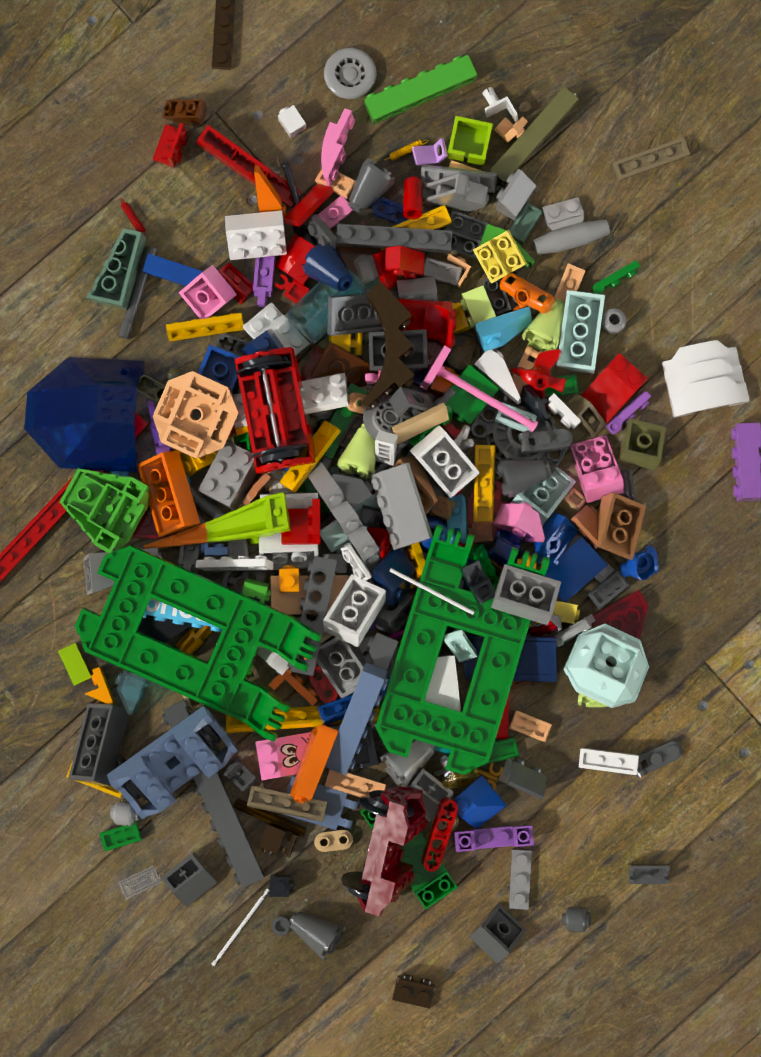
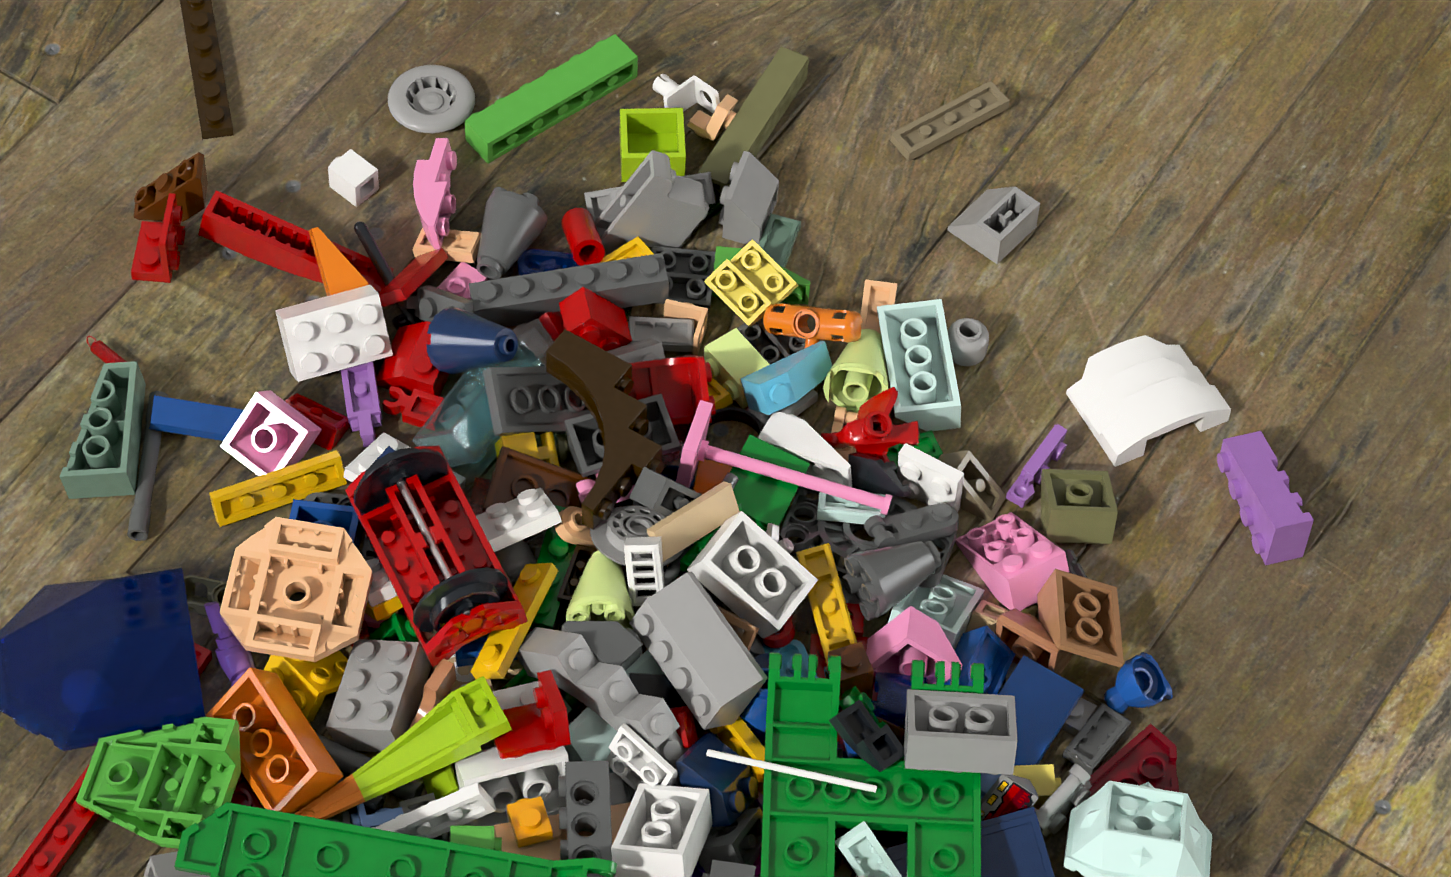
camera: 15 degrees left, 30 degrees down
(405, 150) = (555, 181): yellow piece -> none
(430, 154) = (594, 179): lavender bracket -> none
(444, 507) = (762, 651): clear orange plate -> none
(568, 228) = (849, 235): light grey plate -> none
(614, 279) = (955, 279): green plate -> none
(614, 387) = (1005, 430): red slope -> none
(654, 239) = (997, 222): none -> light grey slope

